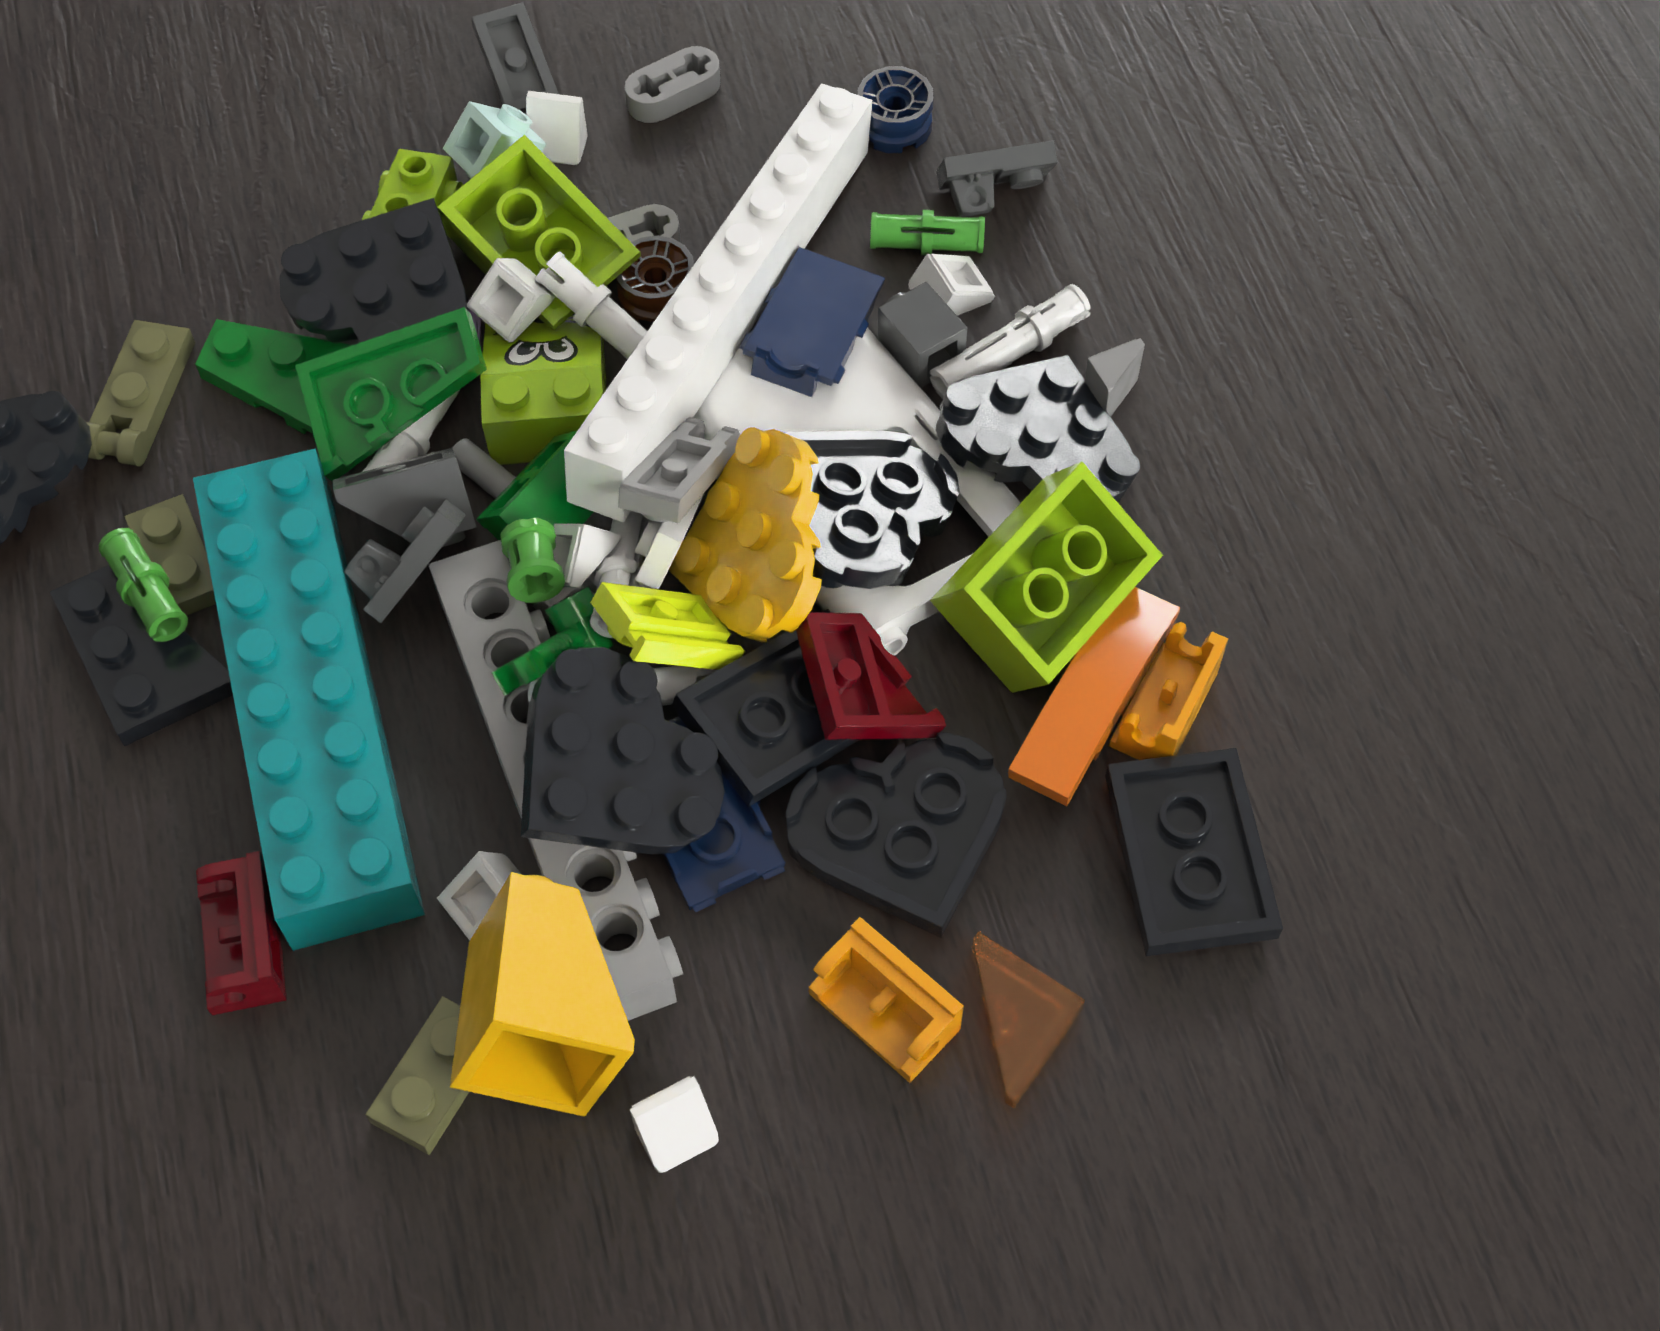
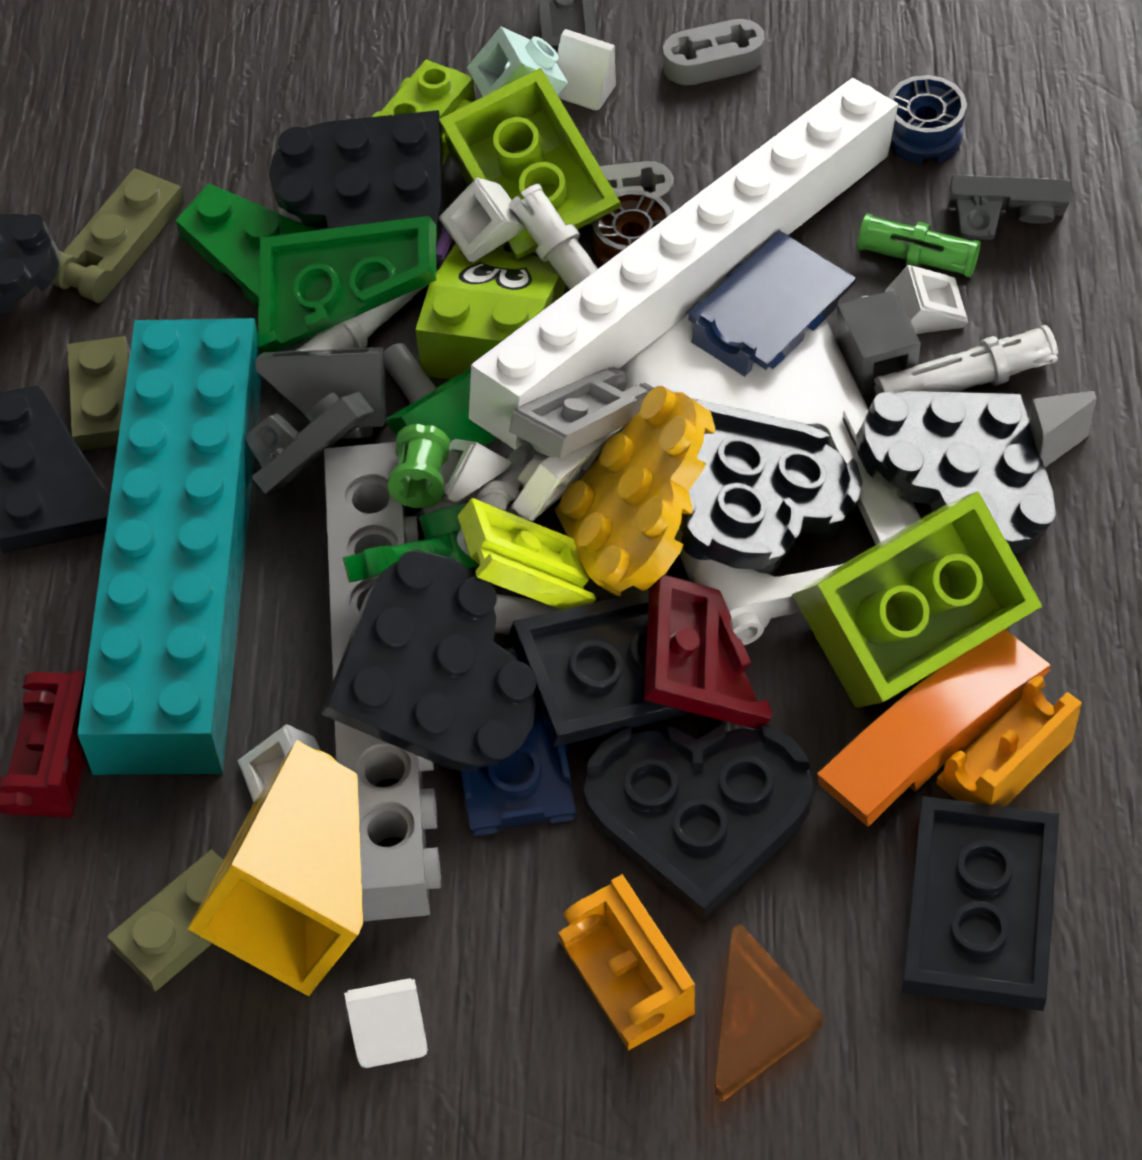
camera: 20 degrees right, 5 degrees down
(143, 584) = (61, 408): bright green pin -> none

